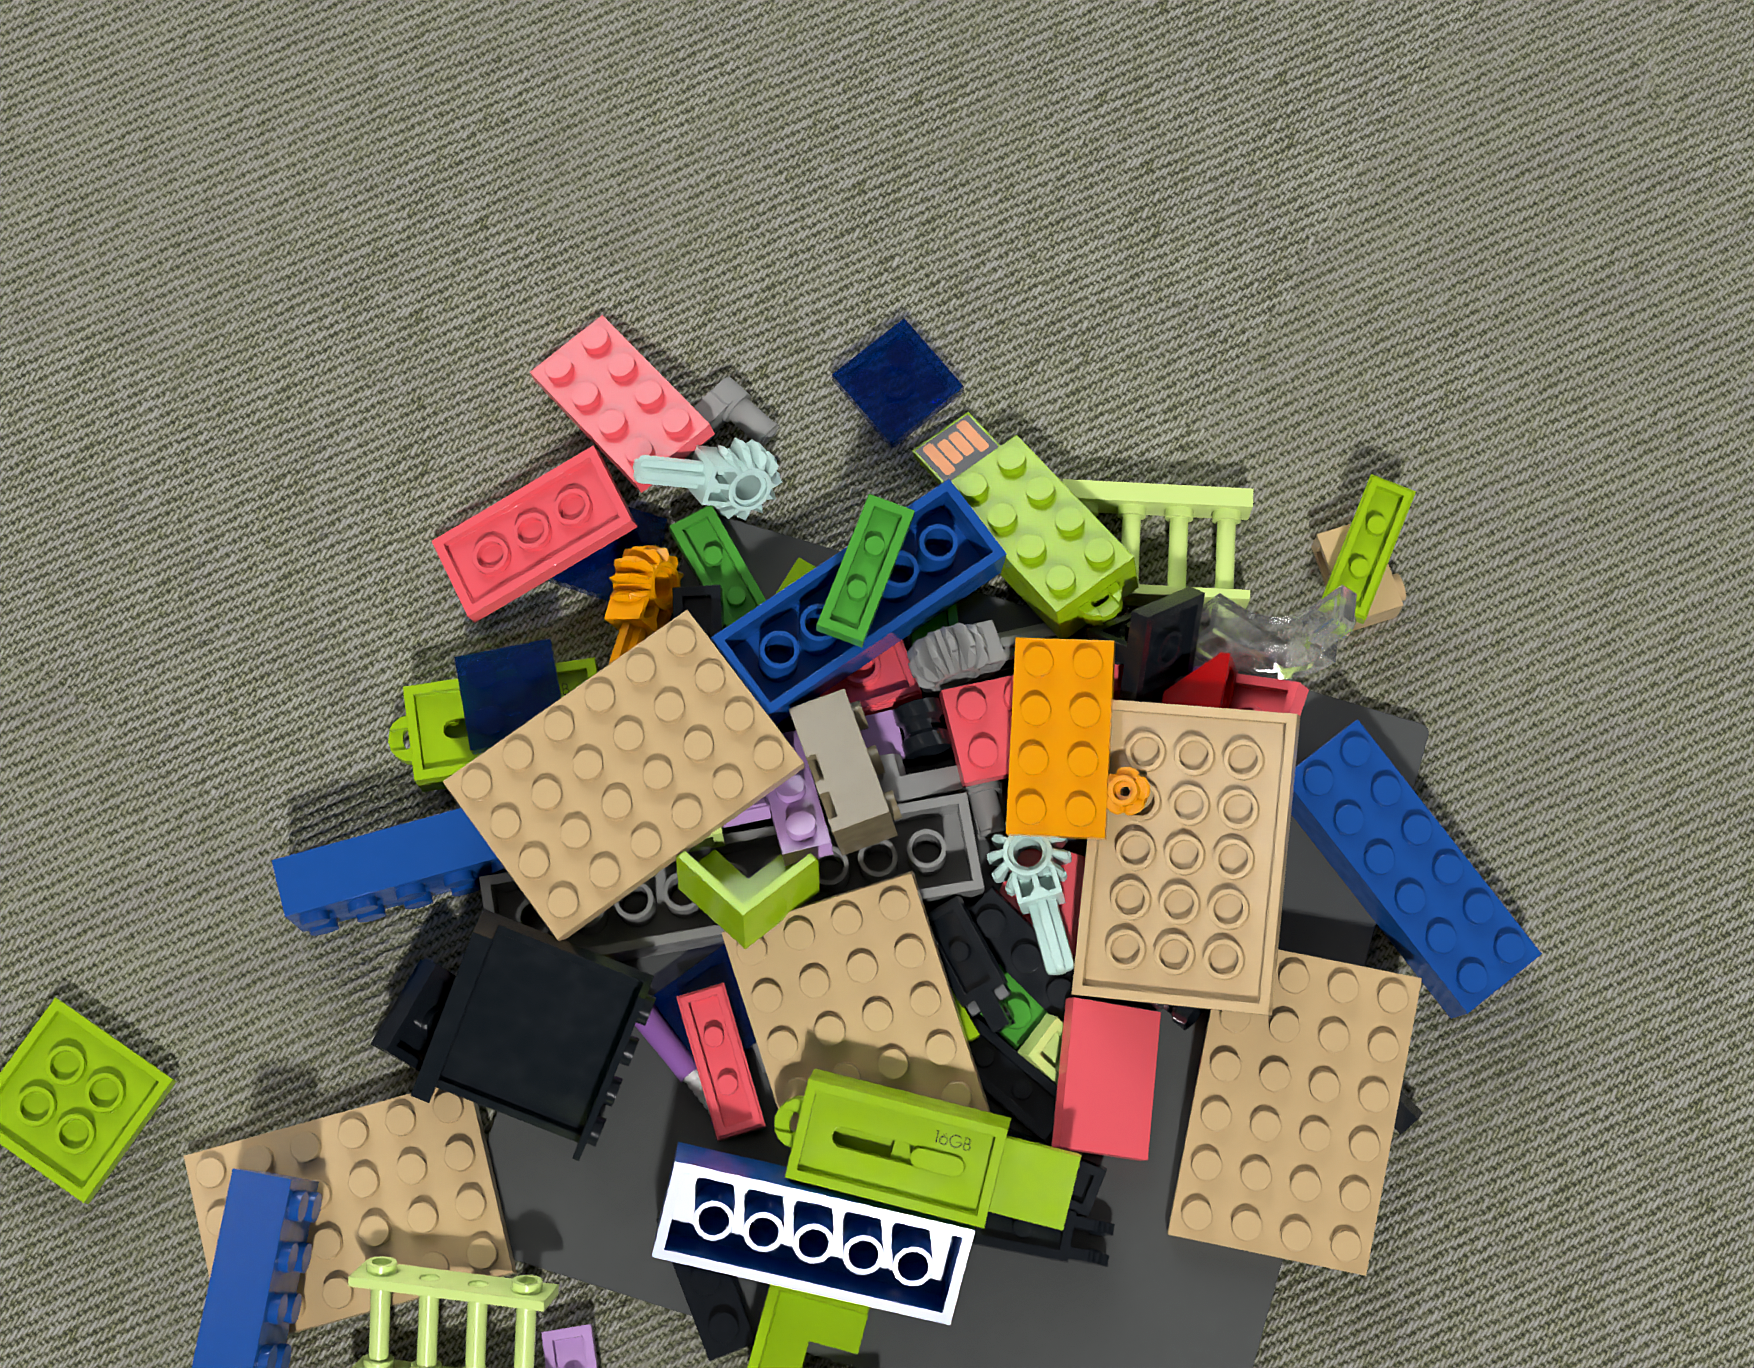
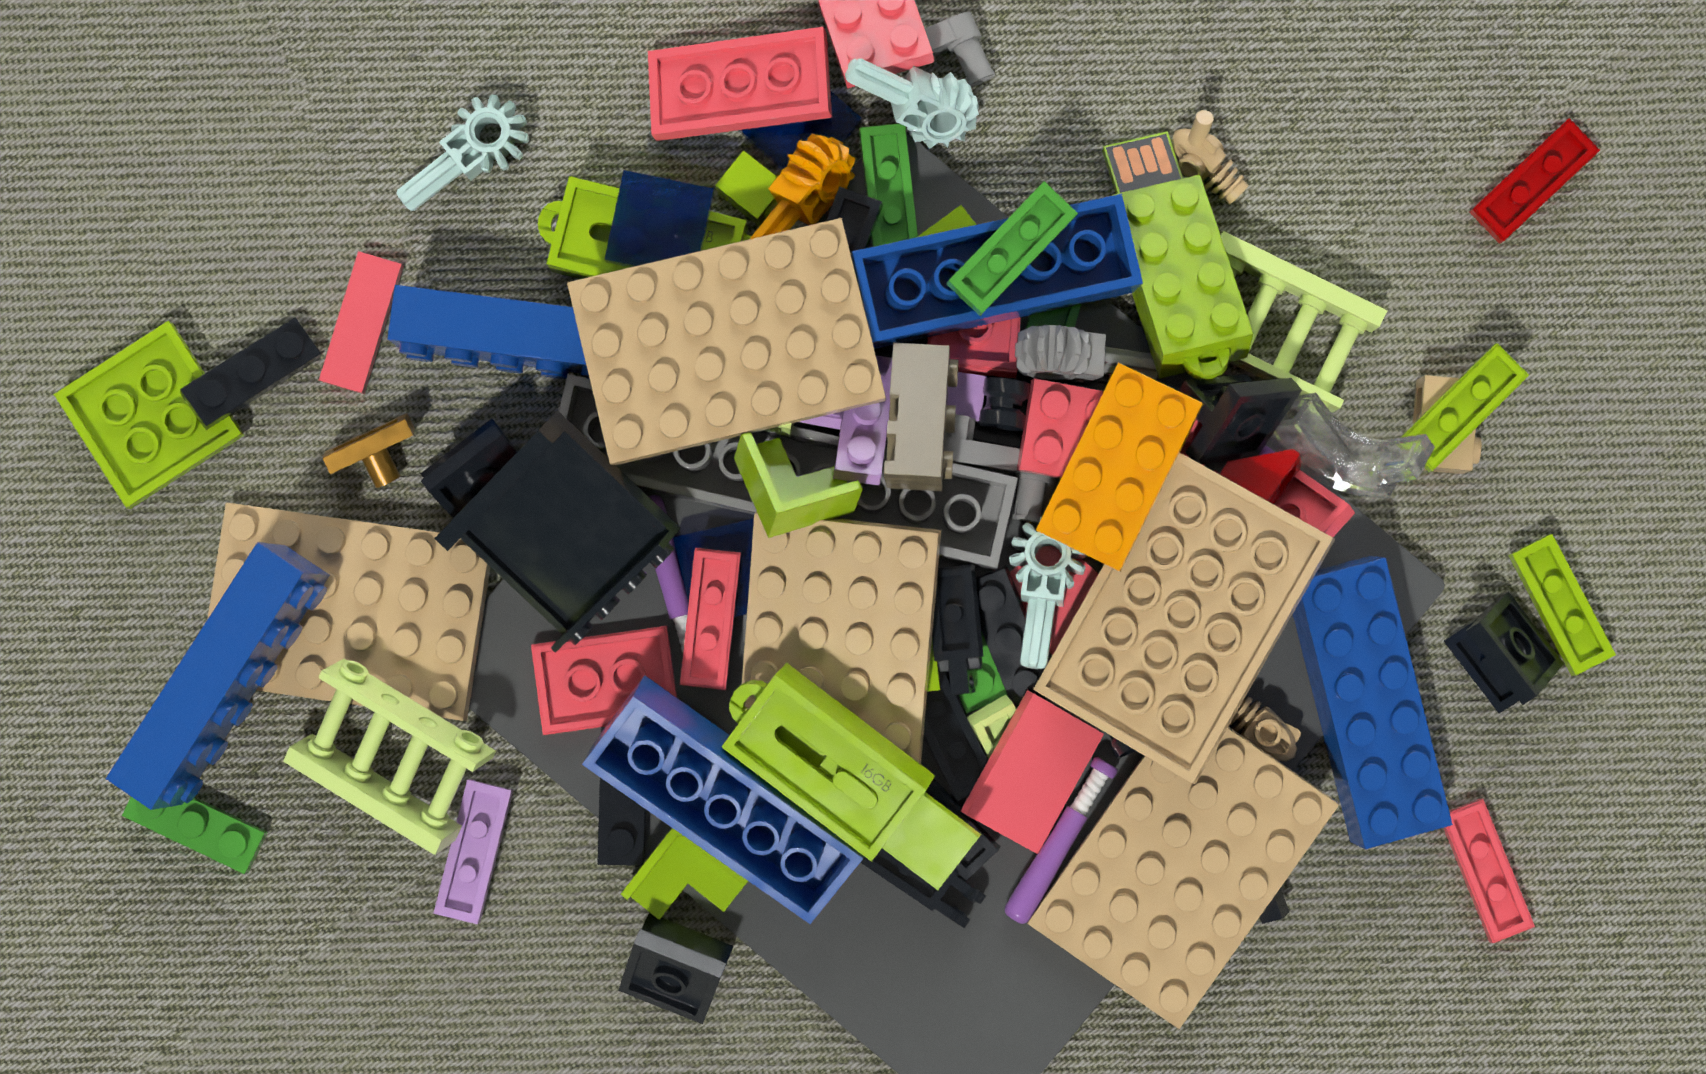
camera: 20 degrees right, 10 degrees up
(159, 1015) = (250, 373): none -> black plate
(251, 921) = (361, 323): none -> coral tile
(293, 710) = (466, 152): none -> light aqua gear
(313, 1041) = (372, 450): none -> pearl gold tile
(583, 630) = (747, 186): none -> lime brick
(625, 1177) = (591, 680): none -> coral tile
(897, 383) = (1116, 79): clear blue plate -> none
(1013, 416) = (1203, 155): none -> tan piece
(1138, 795) = (1167, 539): light orange plate -> none
(1160, 1166) = (1054, 850): none -> medium lavender piece
(1318, 939) = (1266, 730): none -> tan piece
(1338, 315) = (1534, 181): none -> red tile
(1515, 770) = (1505, 654): none -> black bracket
(1549, 700) = (1562, 605): none -> lime plate
(1598, 991) = (1487, 872): none -> coral tile

